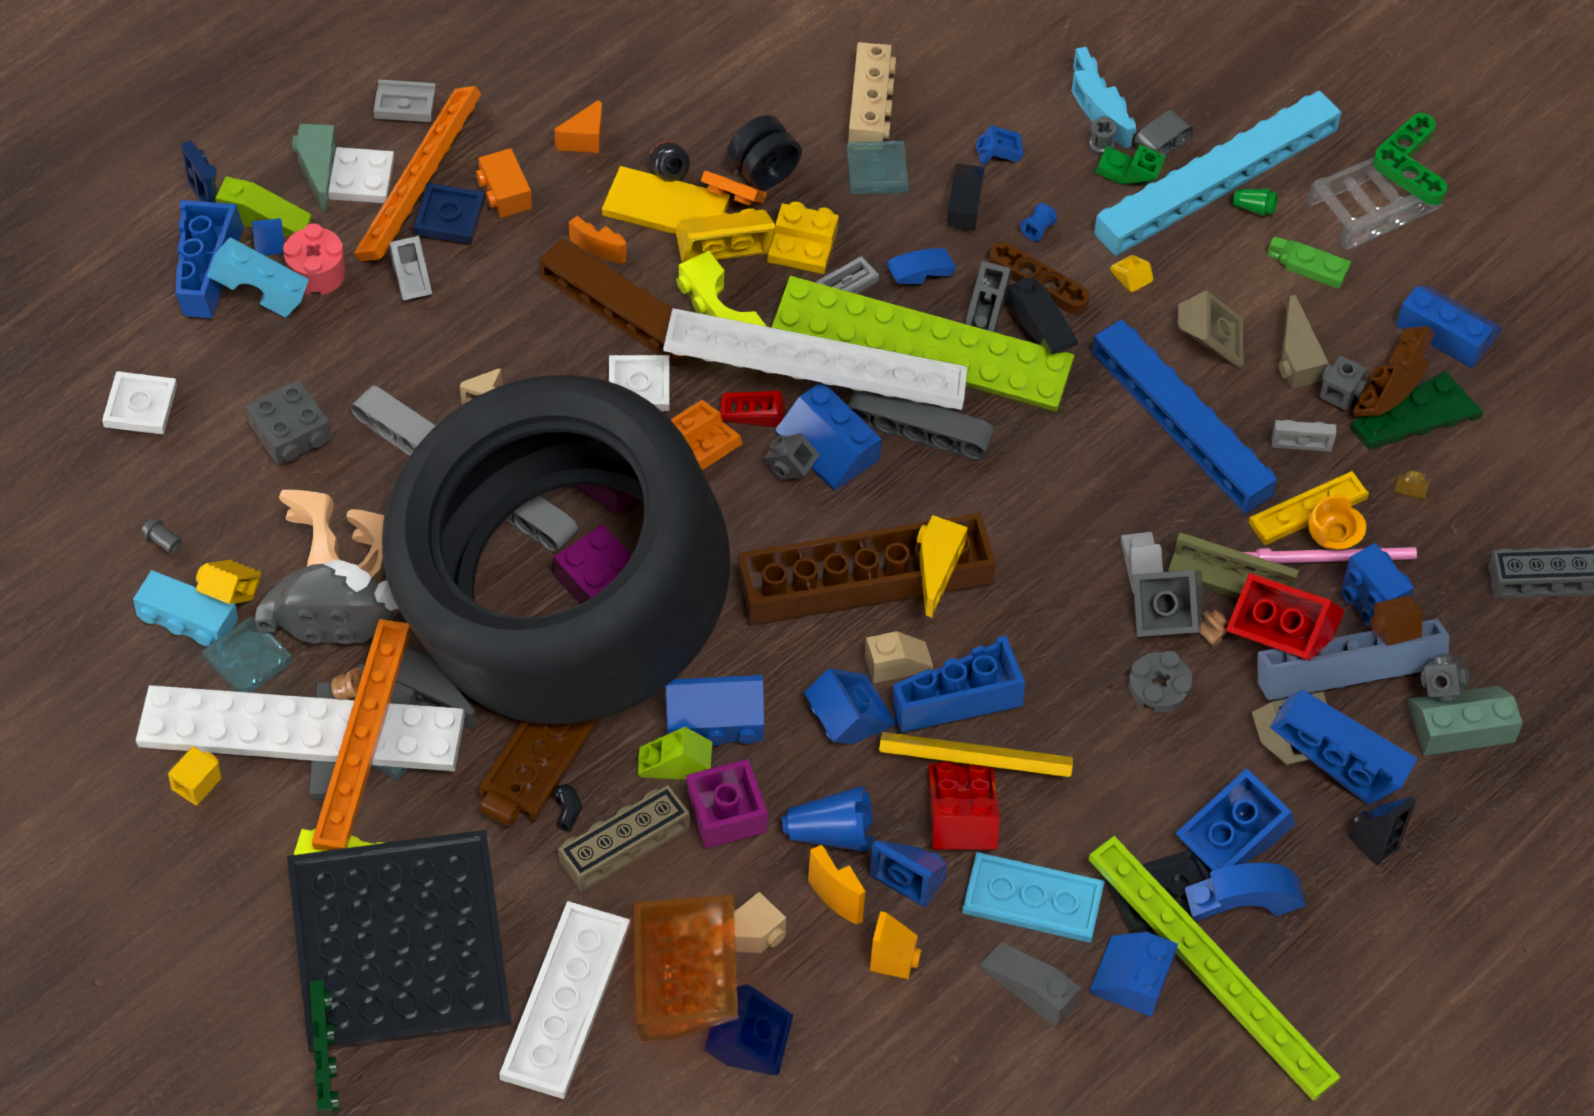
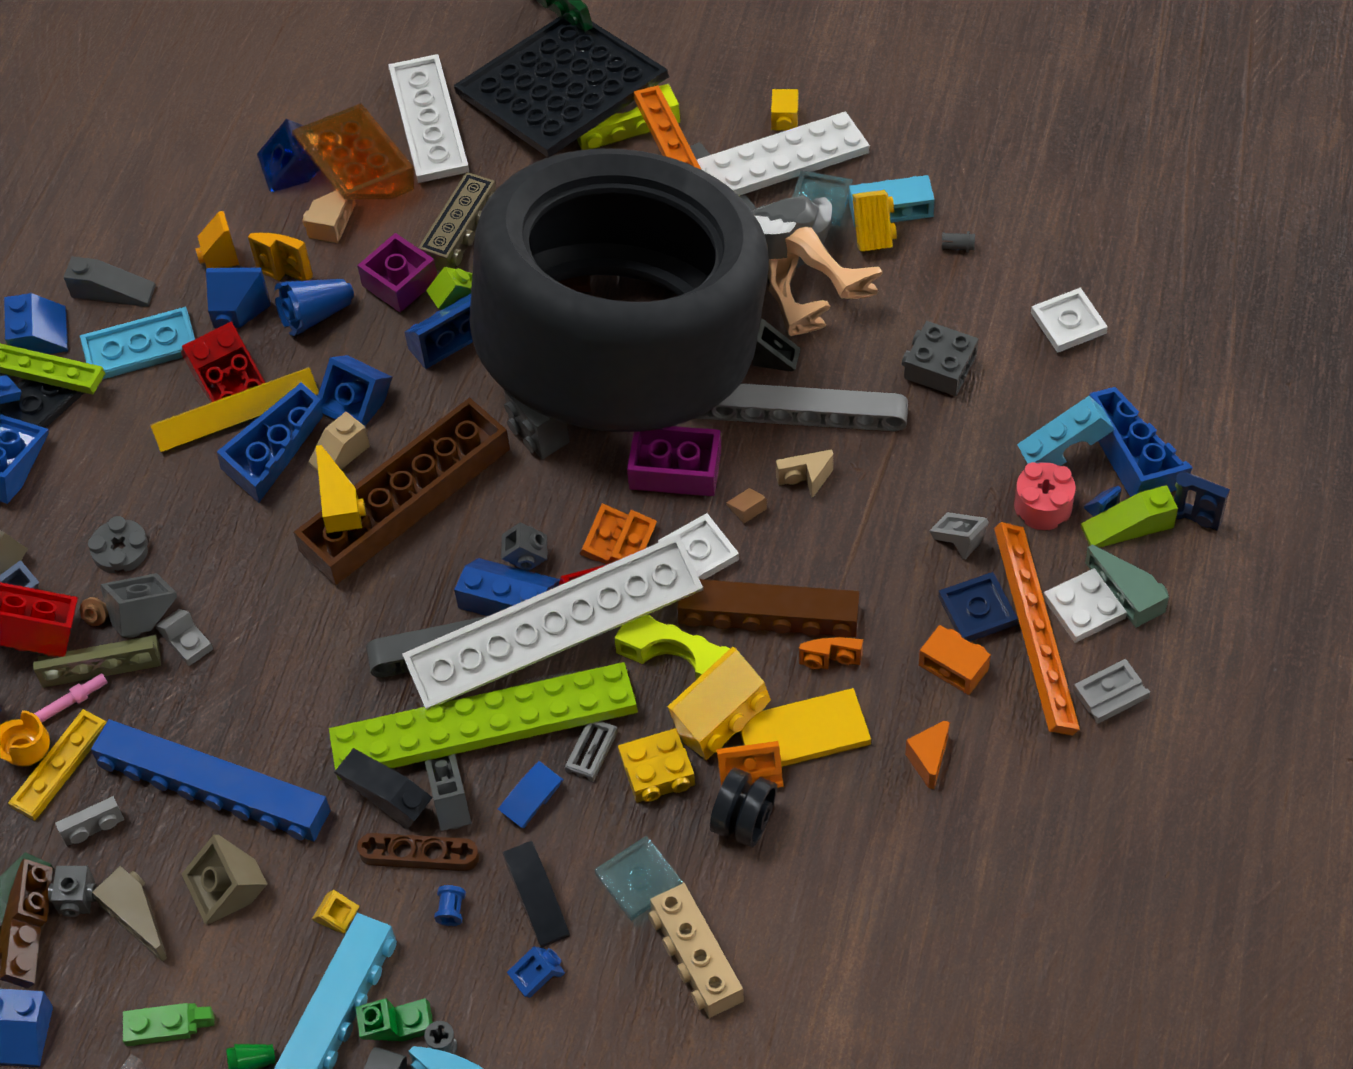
camera: 155 degrees right, 0 degrees up
(669, 161) = (827, 761): black head -> none

